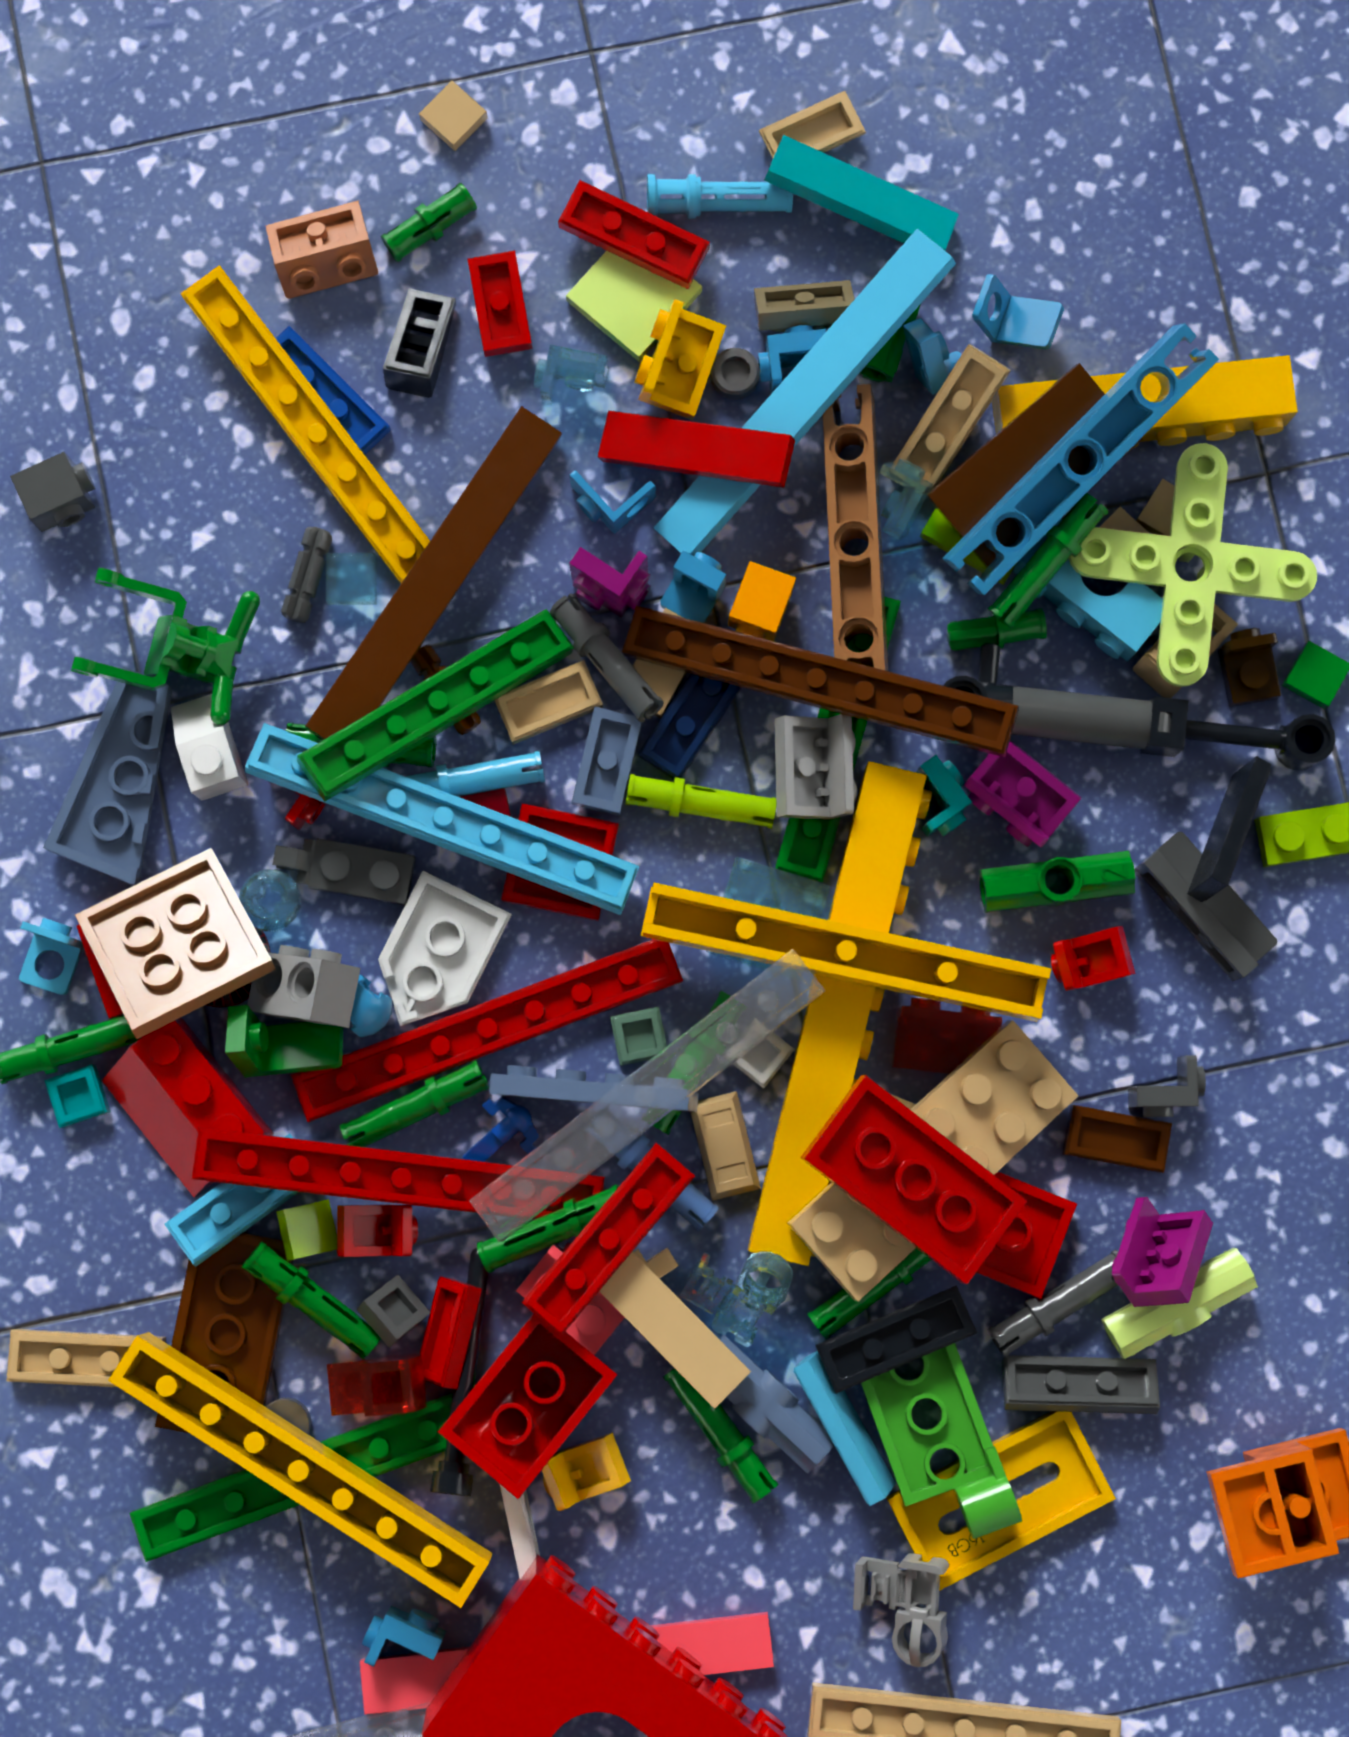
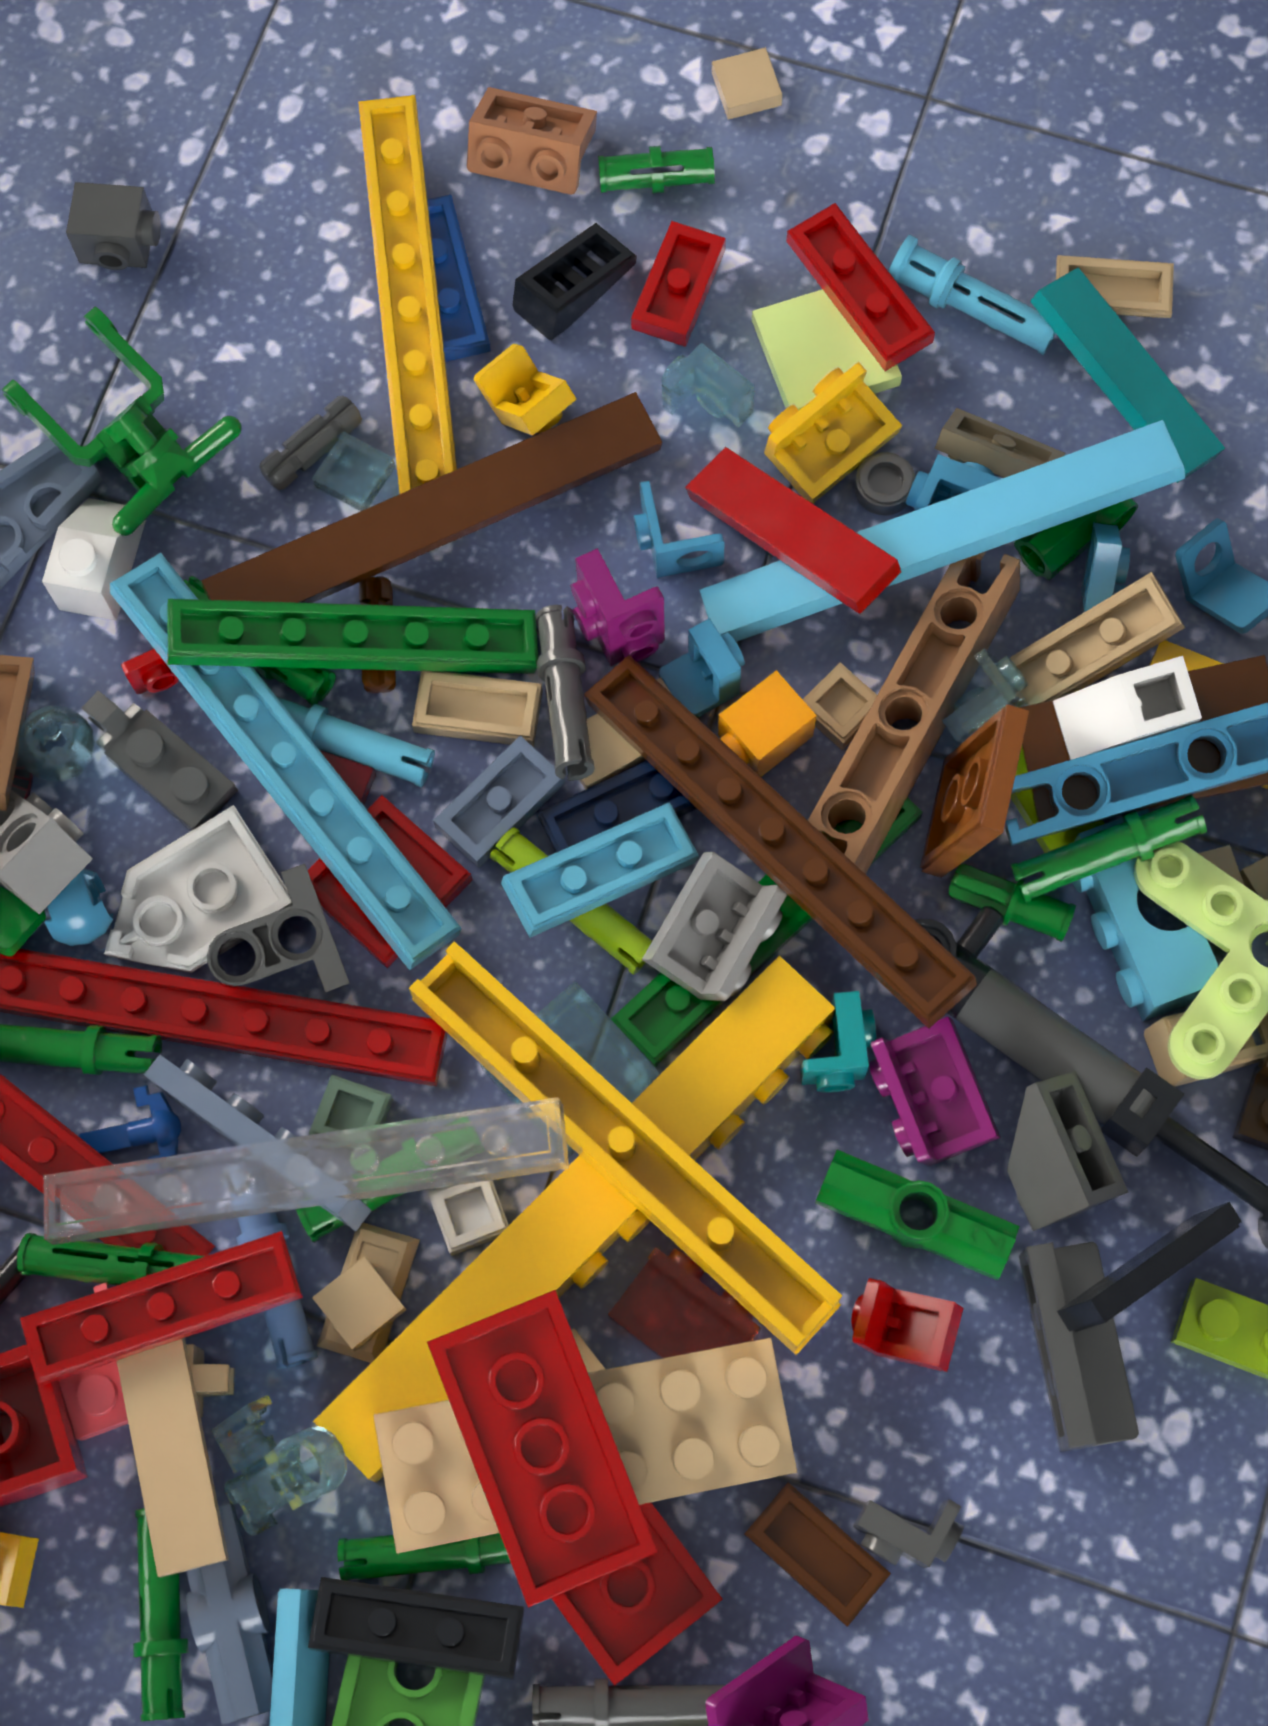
camera: 35 degrees right, 10 degrees down
(441, 452) = (521, 393): none -> yellow bracket
(508, 949) = (265, 939): none -> dark grey tile
(710, 771) = (599, 869): none -> medium azure tile
(728, 1157) = (359, 1303): none -> tan tile
(801, 554) = (840, 705): none -> tan tile
(938, 573) = (974, 792): none -> dark orange tile
(1011, 457) = (1127, 708): none -> white slope
(1131, 788) = (1060, 1154): none -> dark grey slope

